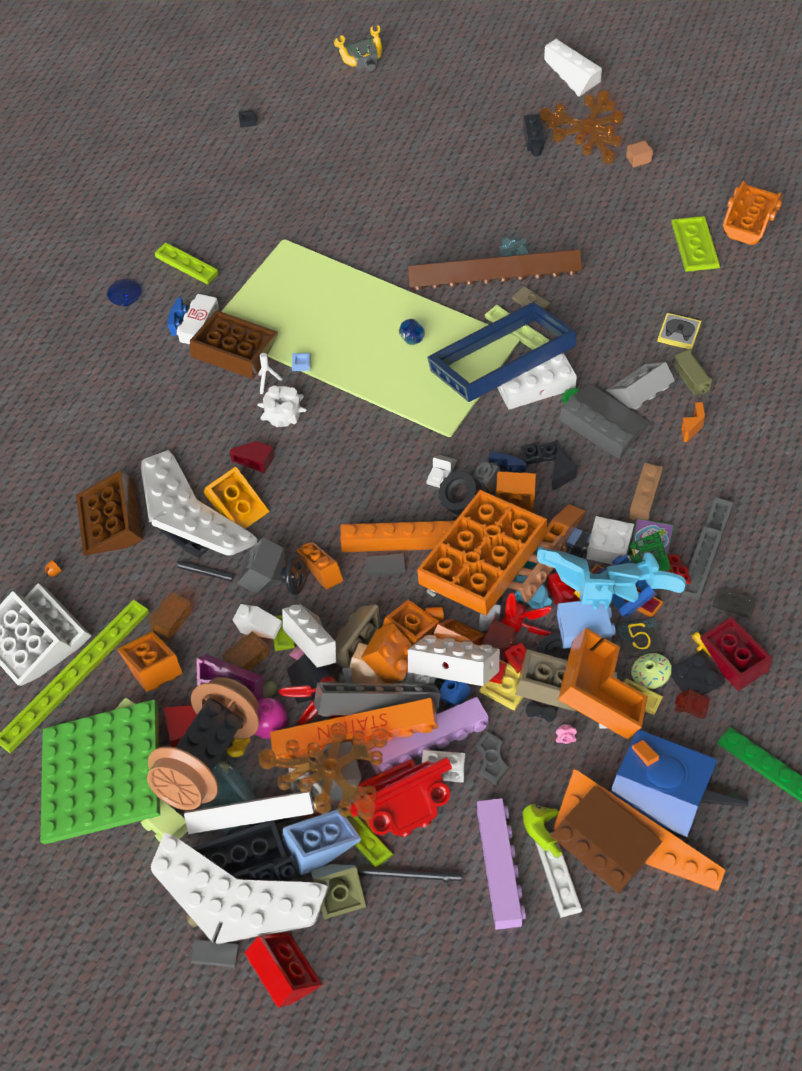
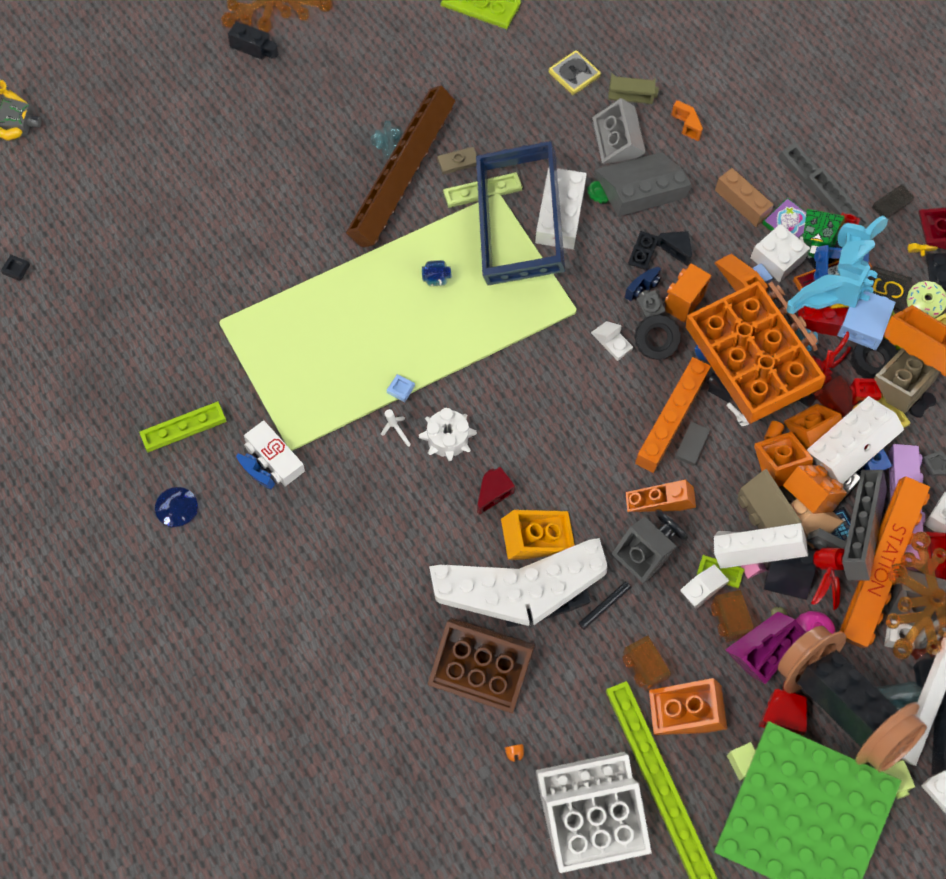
camera: 65 degrees left, 10 degrees up
(232, 343) = (335, 436): reddish brown slope -> none
(581, 545) = (782, 276): black plate -> none

